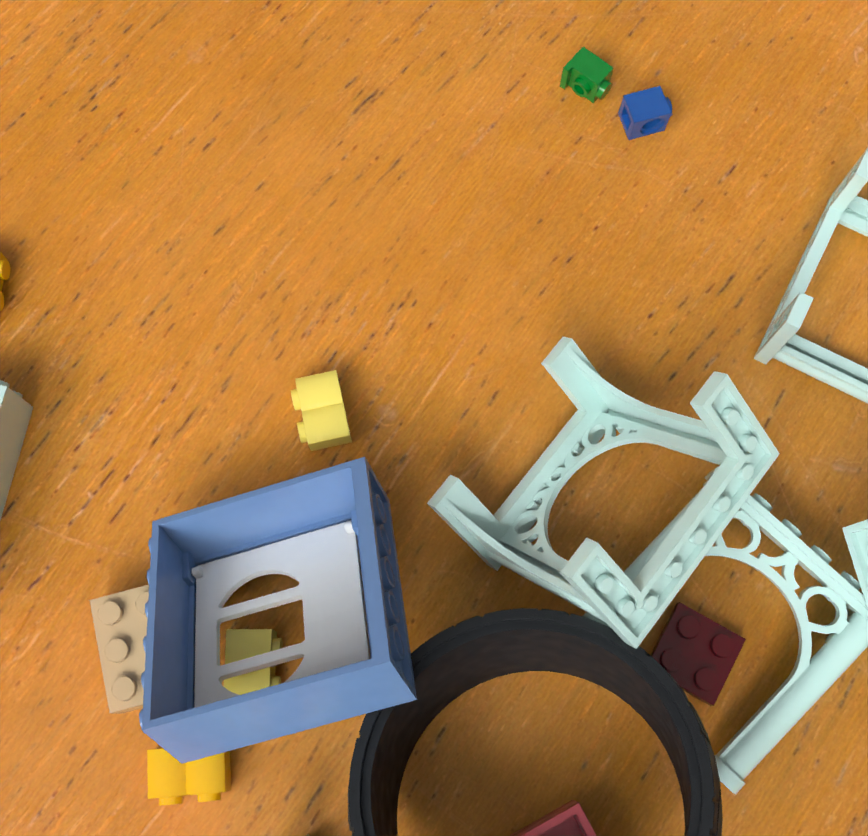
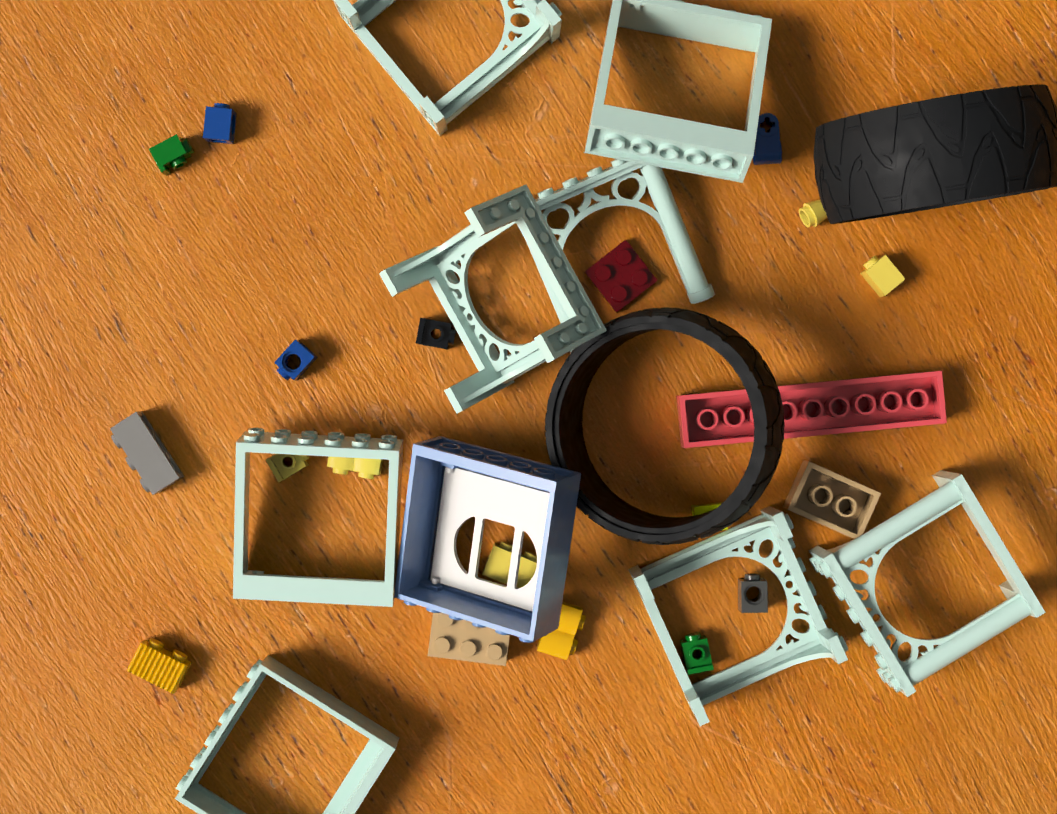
camera: 70 degrees left, 15 degrees up
(110, 348) = (308, 589): none -> light aqua door
(232, 175) = (146, 453): none -> light grey brick
(287, 346) = (282, 471): none -> light yellow brick
(417, 307) = (306, 356): none -> blue brick
(513, 430) = (425, 338): none -> black brick

